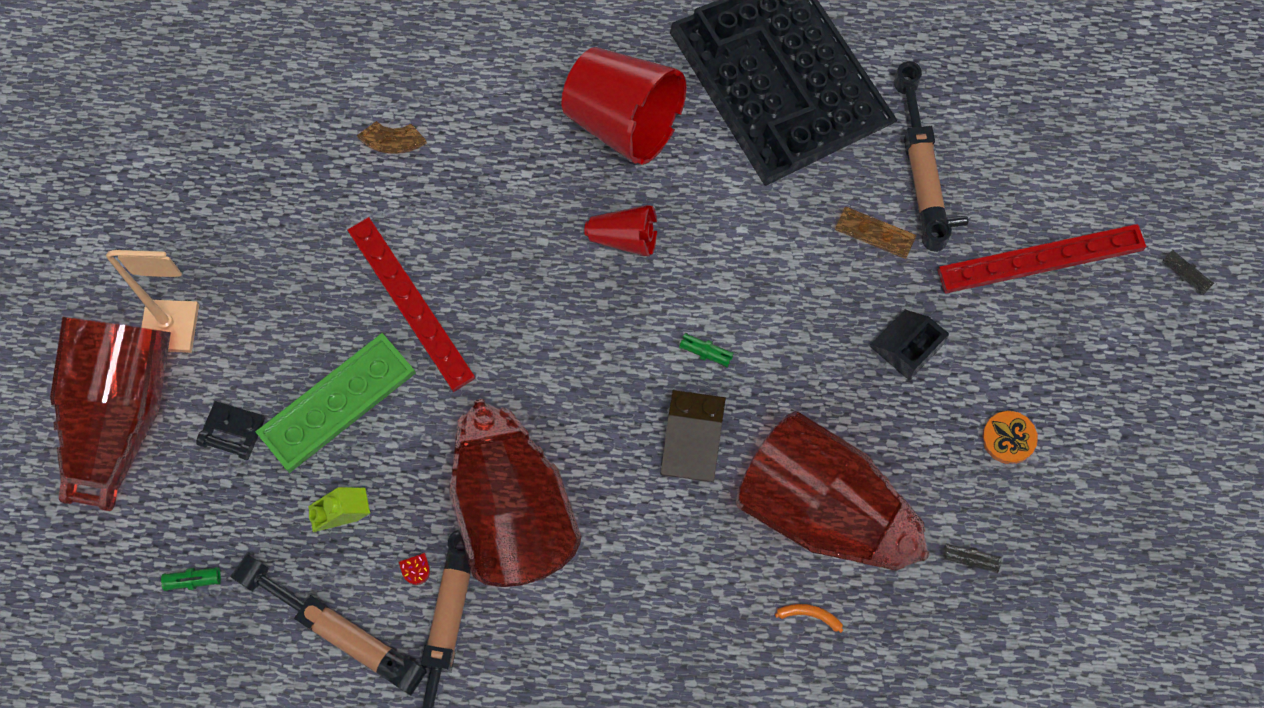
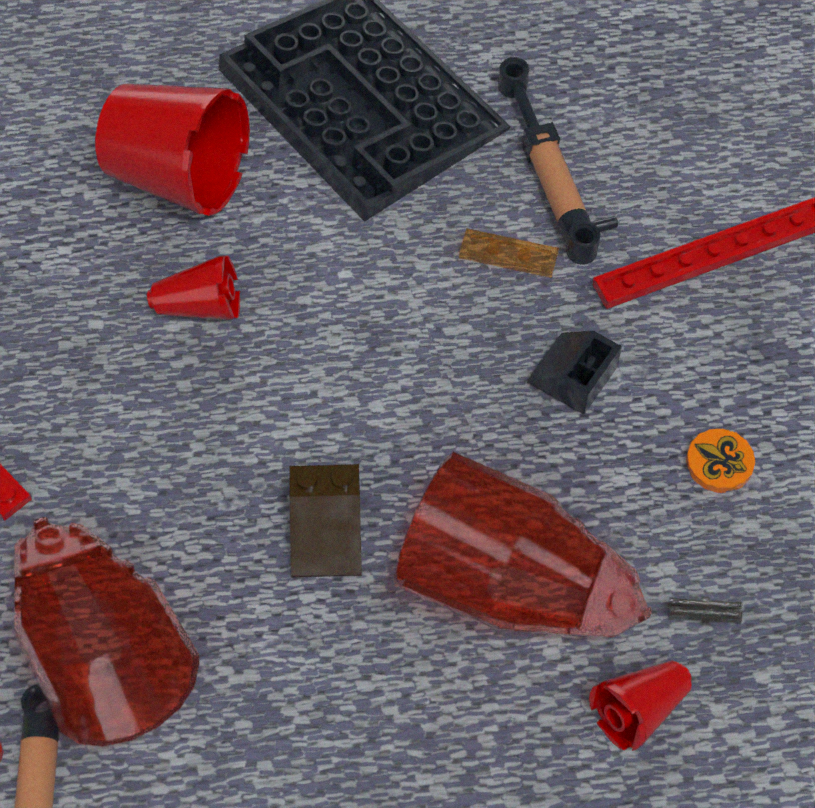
camera: 15 degrees left, 10 degrees down
(706, 350) = (324, 418): green pin -> none
(810, 610) = (517, 711): orange piece -> none
(907, 623) = (639, 702): none -> red cone

